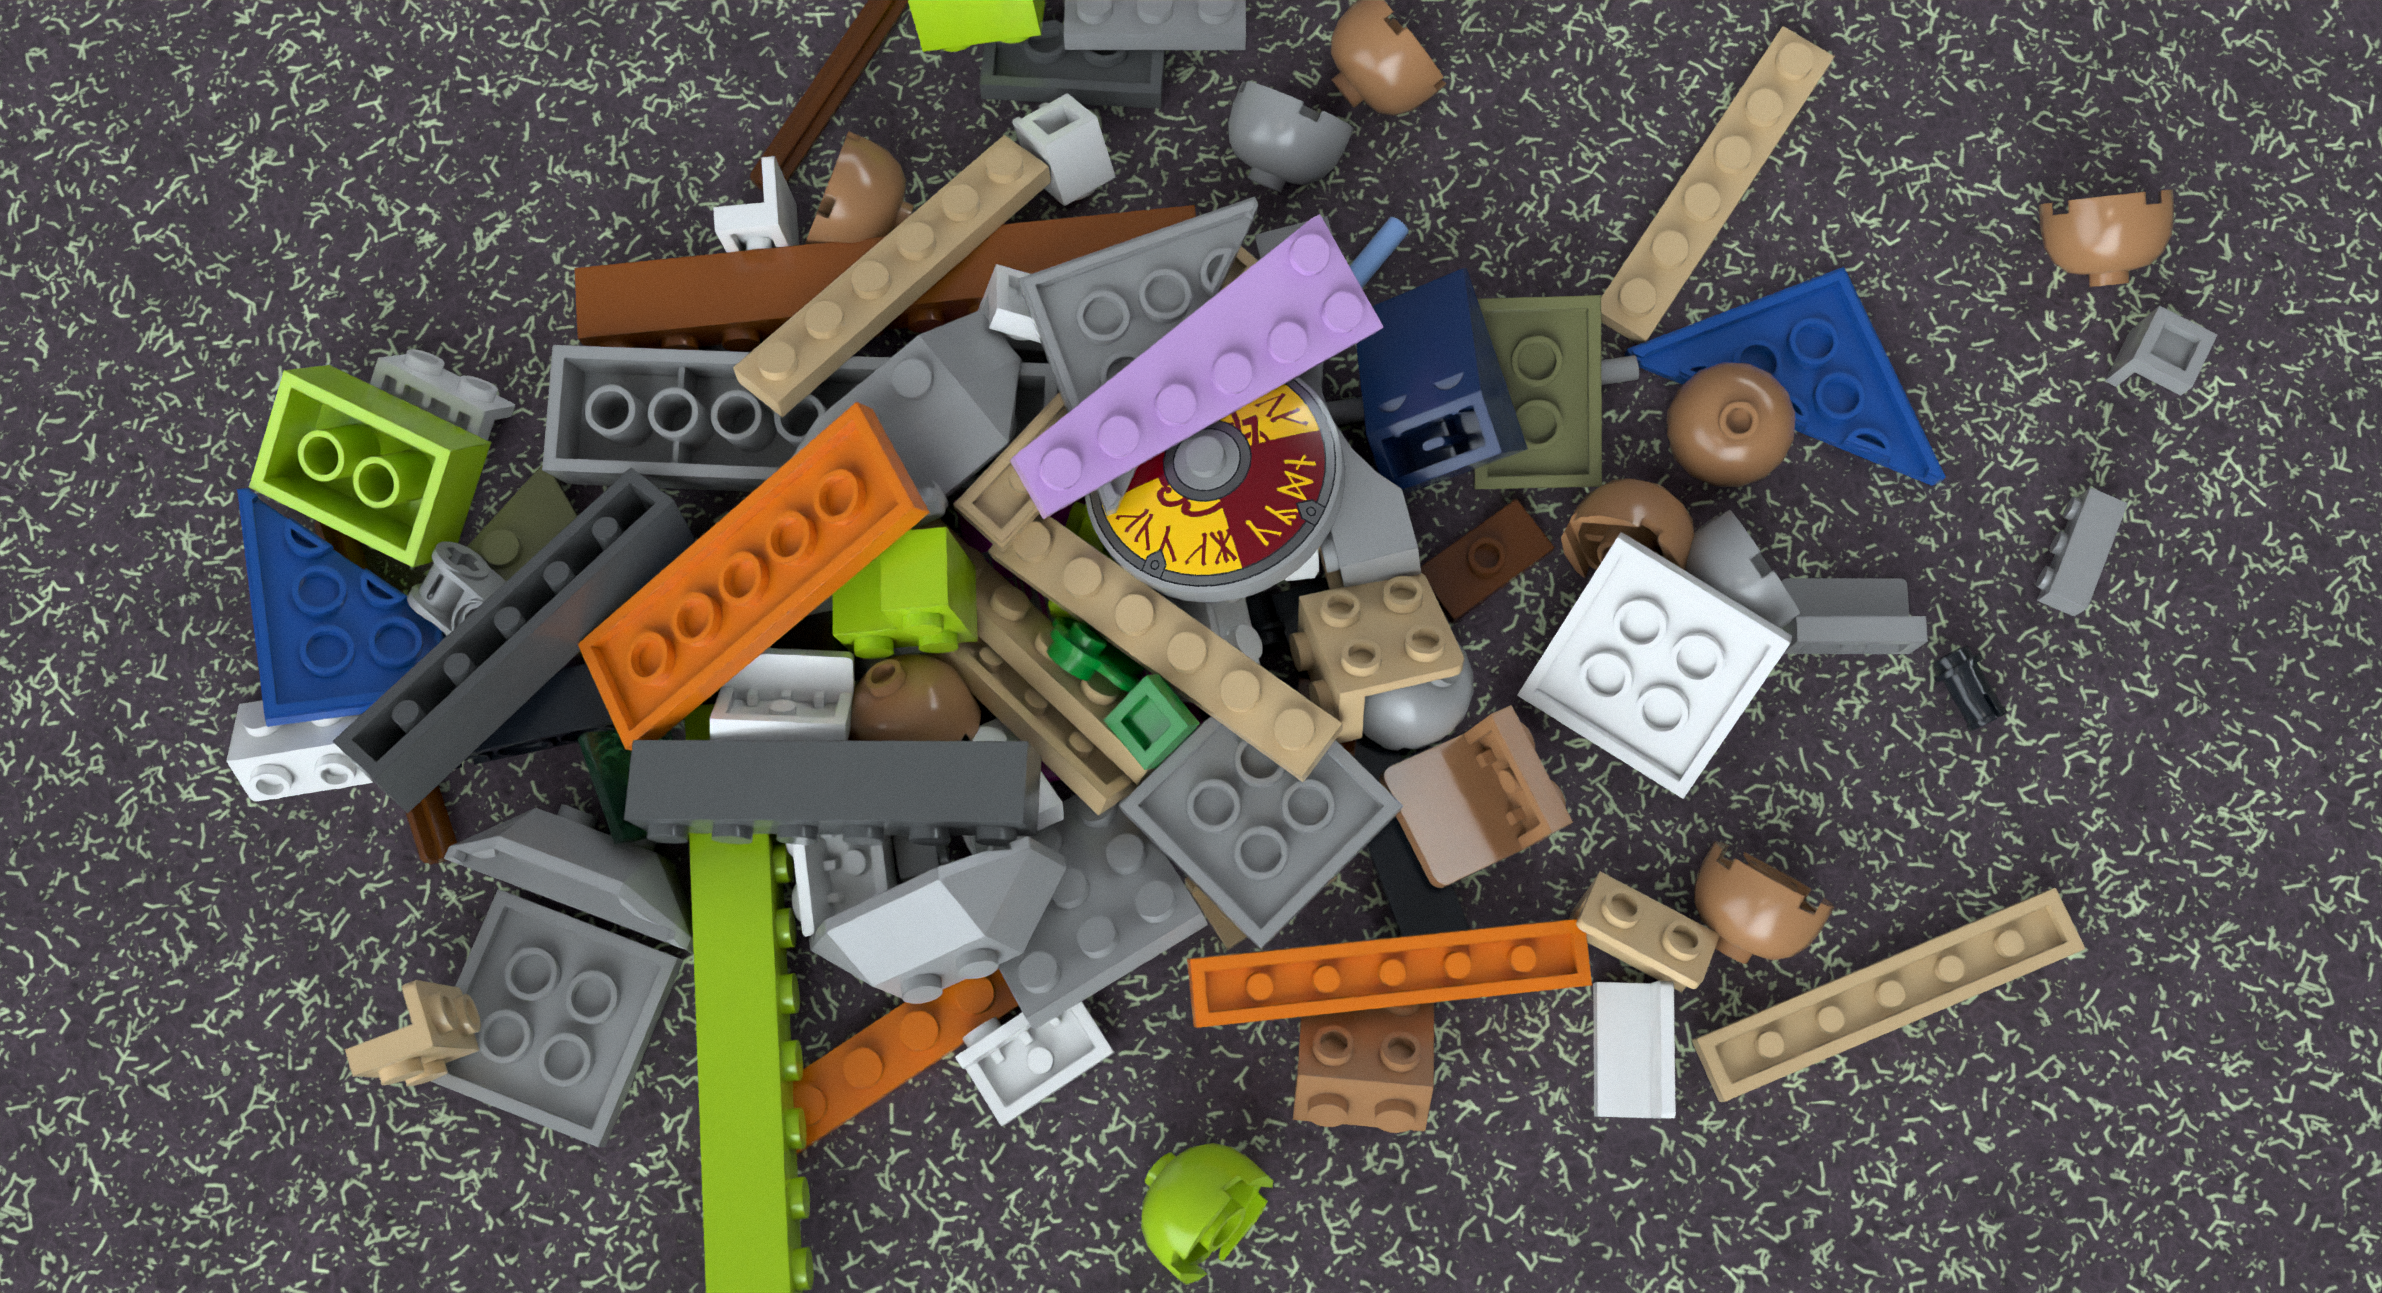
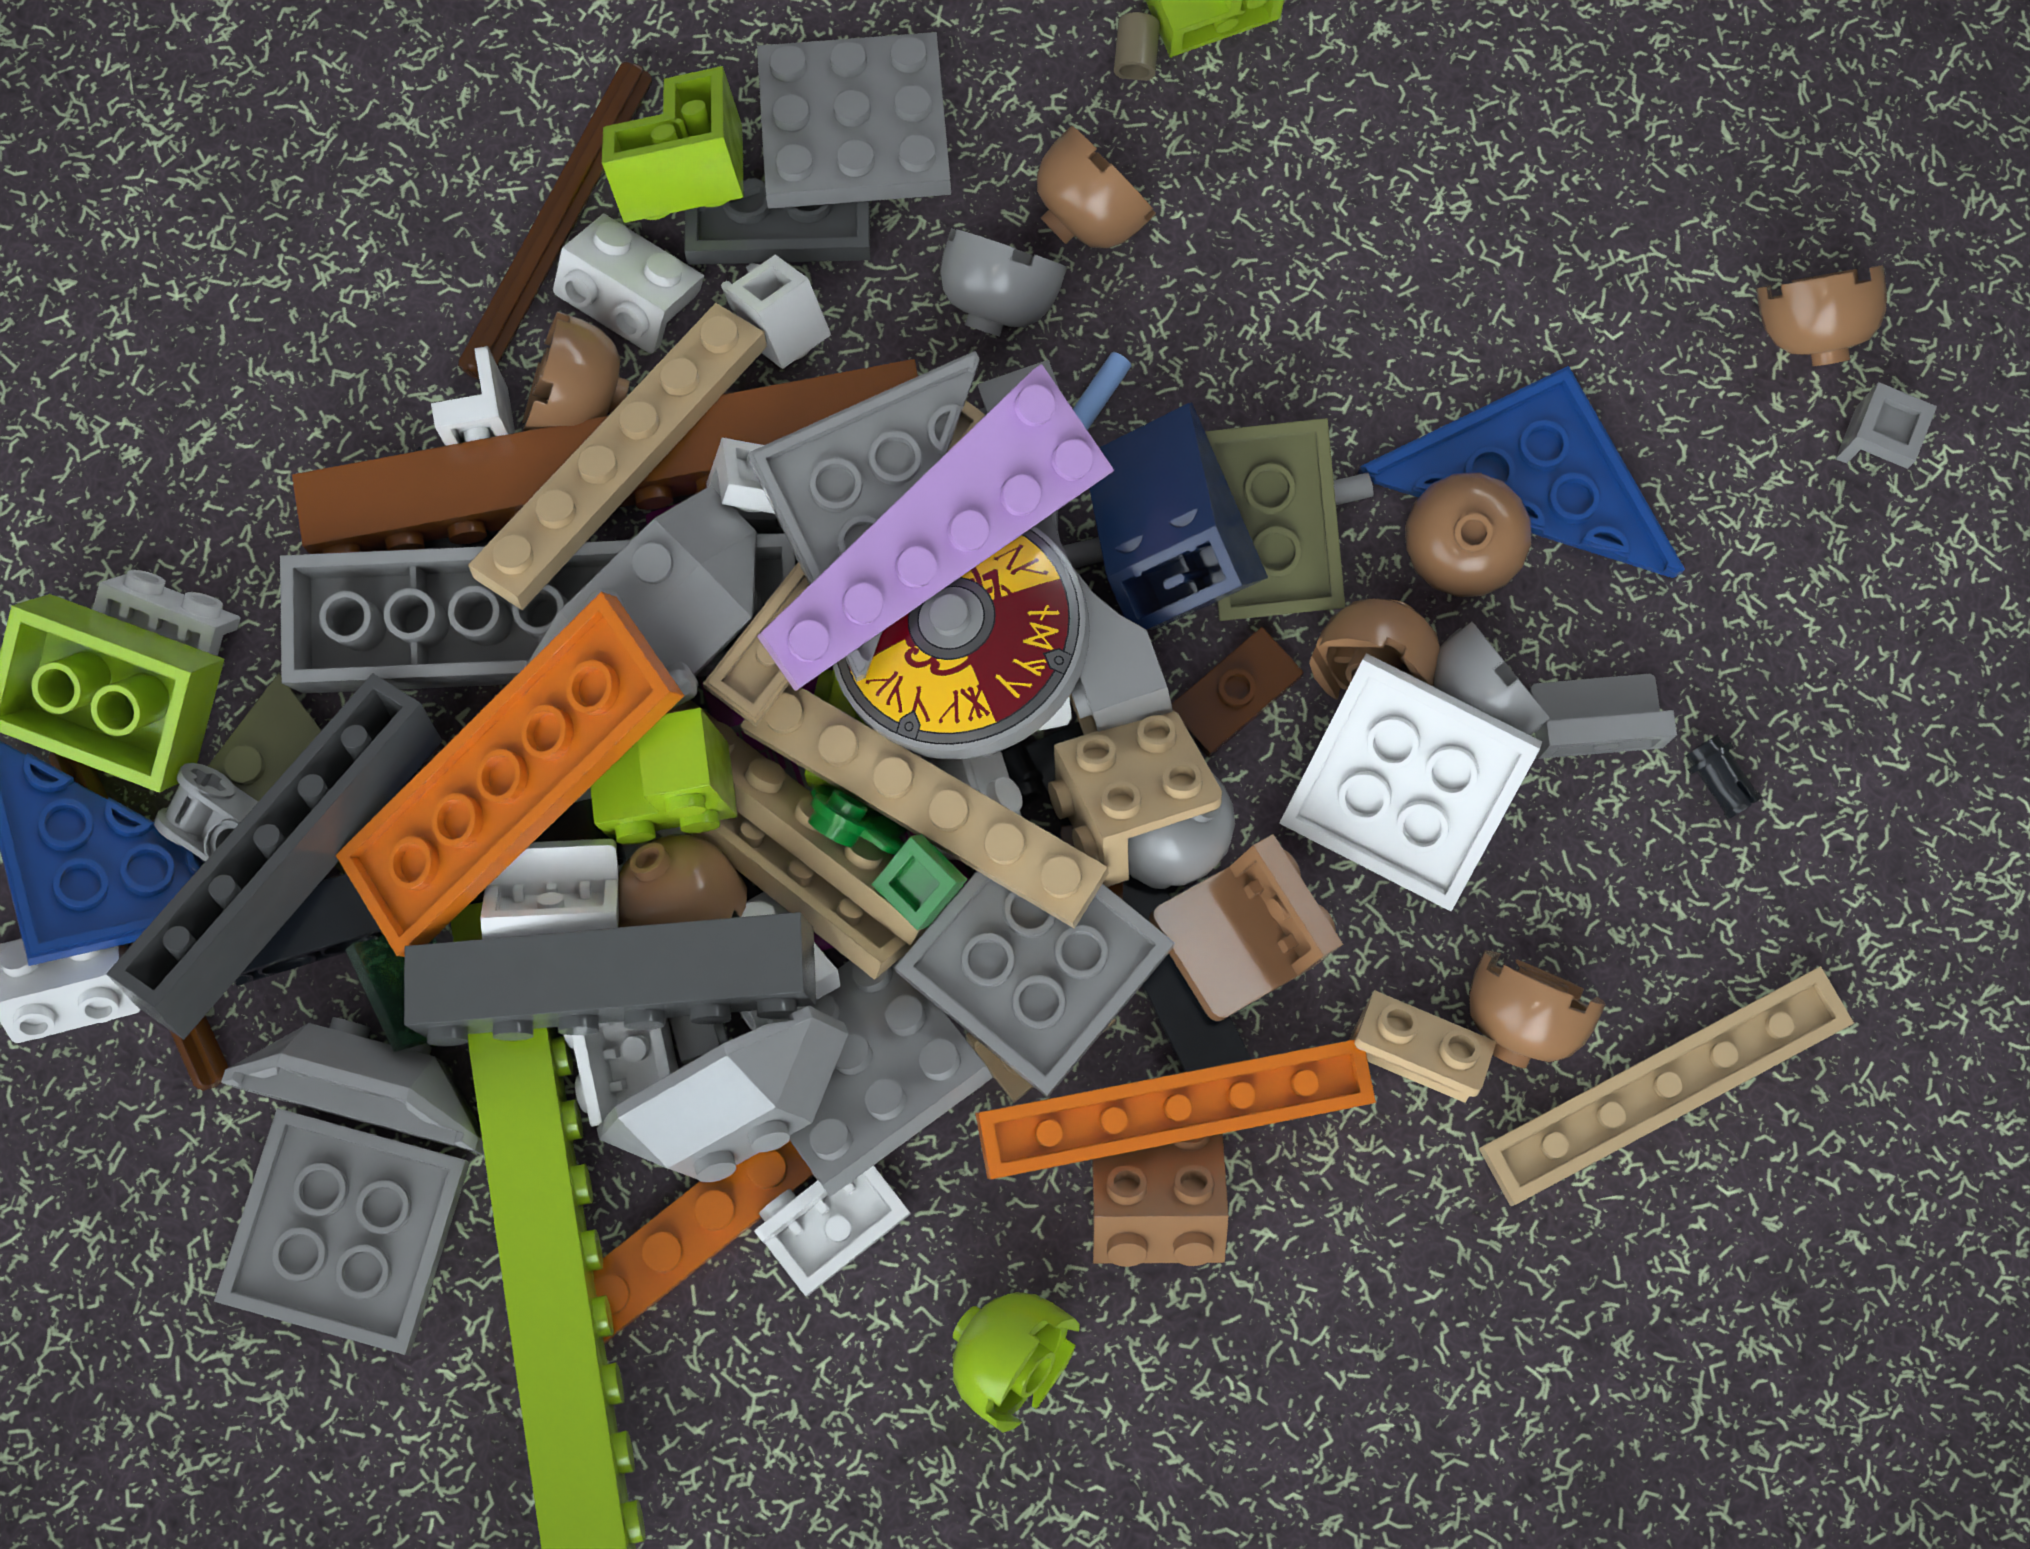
camera: 10 degrees left, 0 degrees up
(439, 1033) = (221, 1273): tan bracket -> none
(919, 110) = (624, 281): none -> white bracket
(1634, 1050) = (1422, 1163): white panel -> none
(1713, 185) = (1432, 294): tan plate -> none
(2080, 551) = (1822, 631): light grey piece -> none

